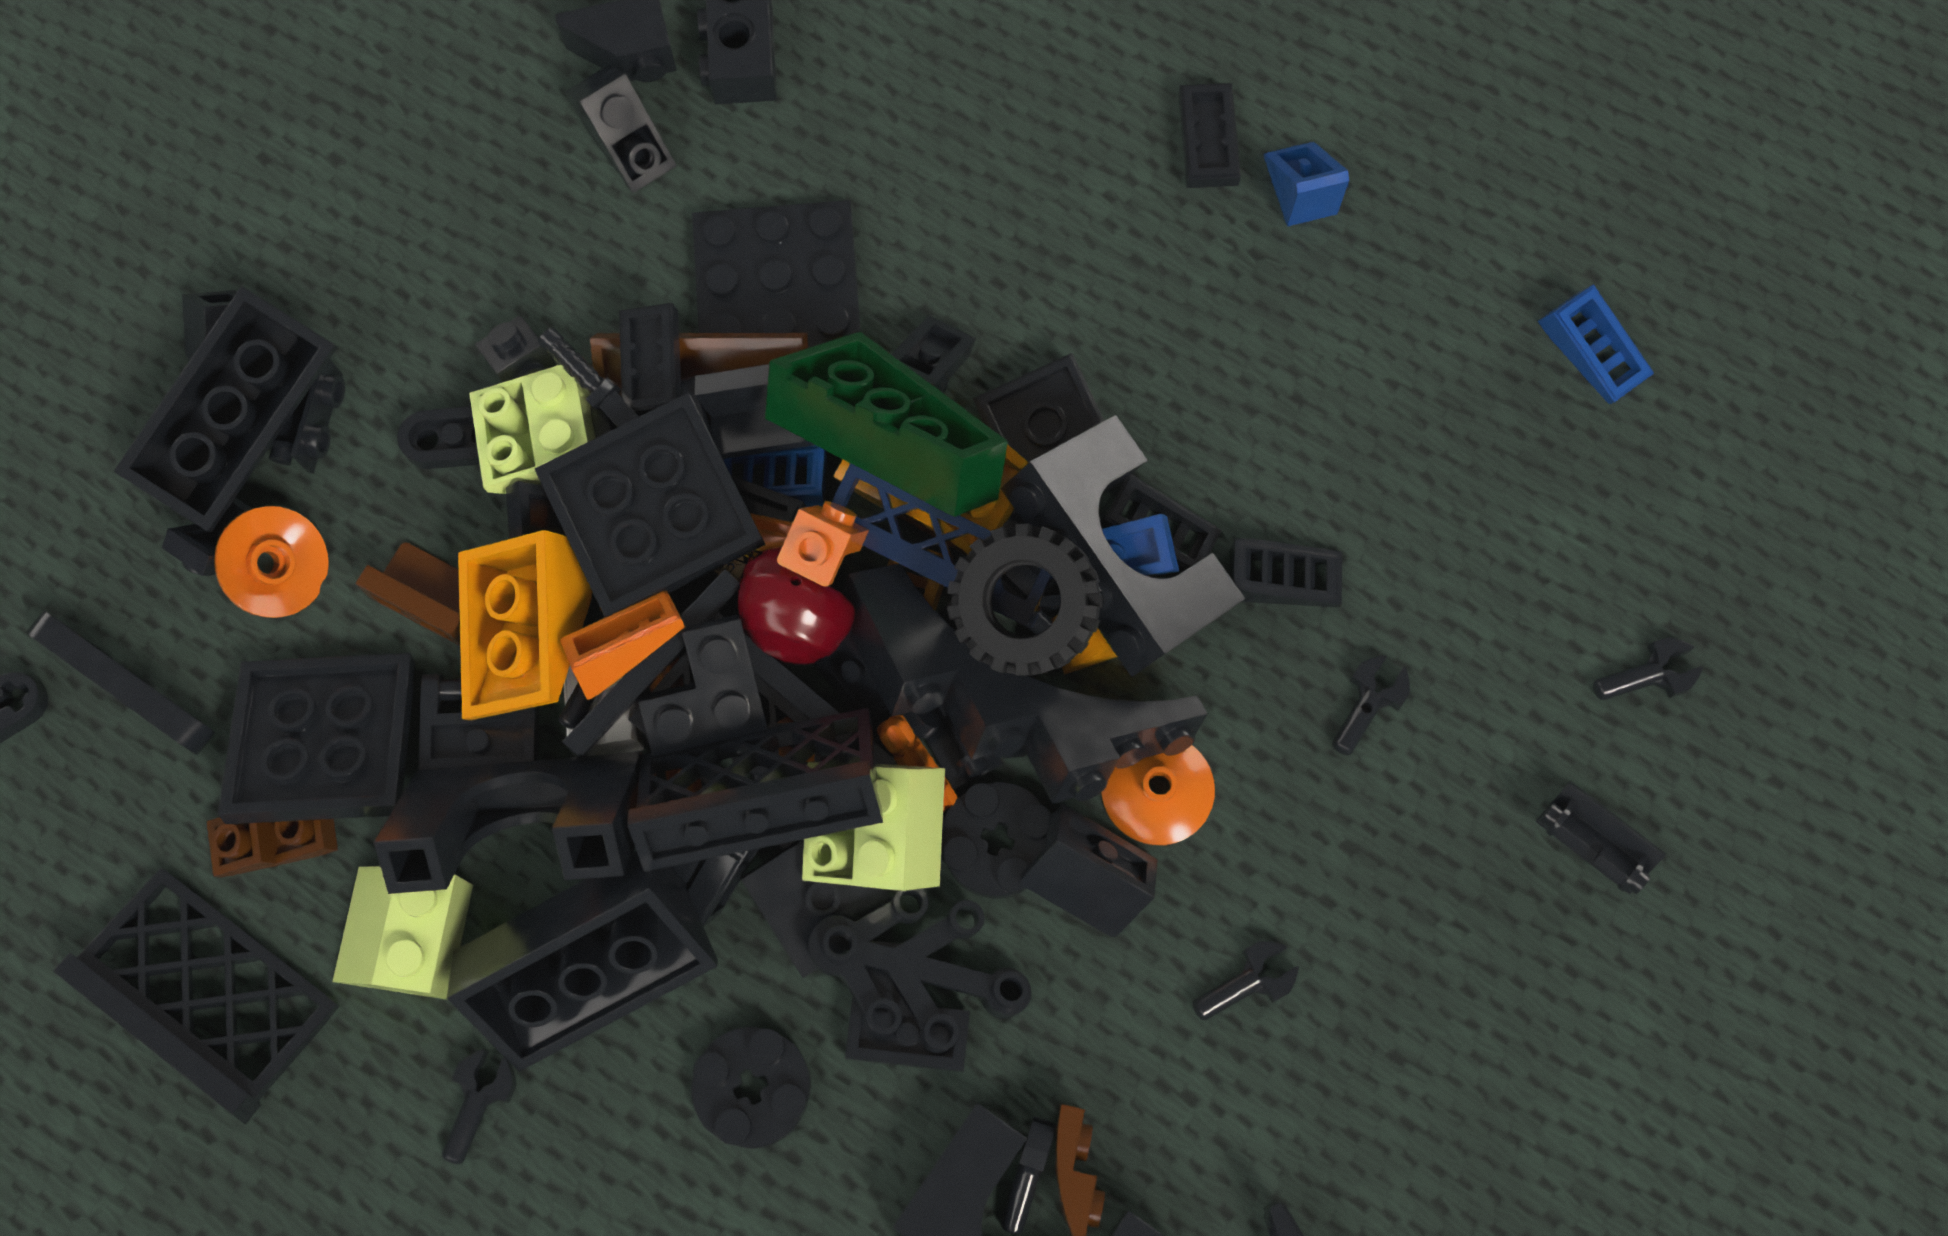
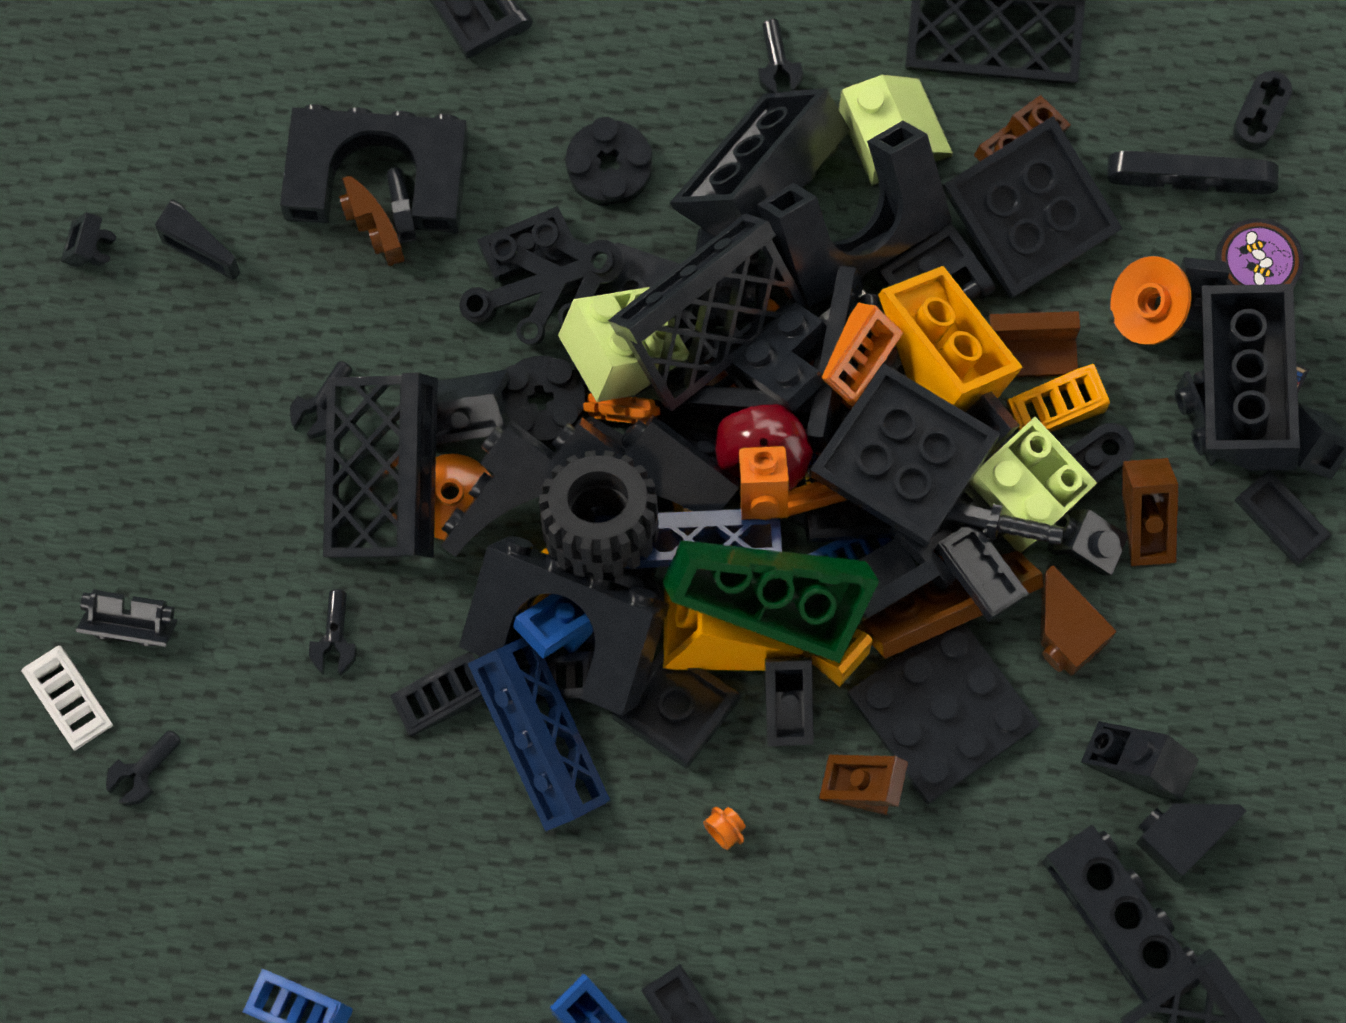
camera: 150 degrees right, 0 degrees up
(121, 551) = (1260, 253): none -> tile
(312, 278) = (1282, 517): none -> black tile
(406, 490) = (1086, 375): none -> light orange slope
(432, 352) = (1150, 511): none -> reddish brown slope
(598, 281) = (1069, 625): none -> reddish brown slope
(901, 244) = (864, 781): none -> reddish brown slope
(1066, 285) = (725, 827): none -> orange plate
(1182, 829) = (414, 459): none -> black fence
(1218, 455) = (532, 735): none -> dark blue fence
(1685, 815) = (45, 665): none -> white slope

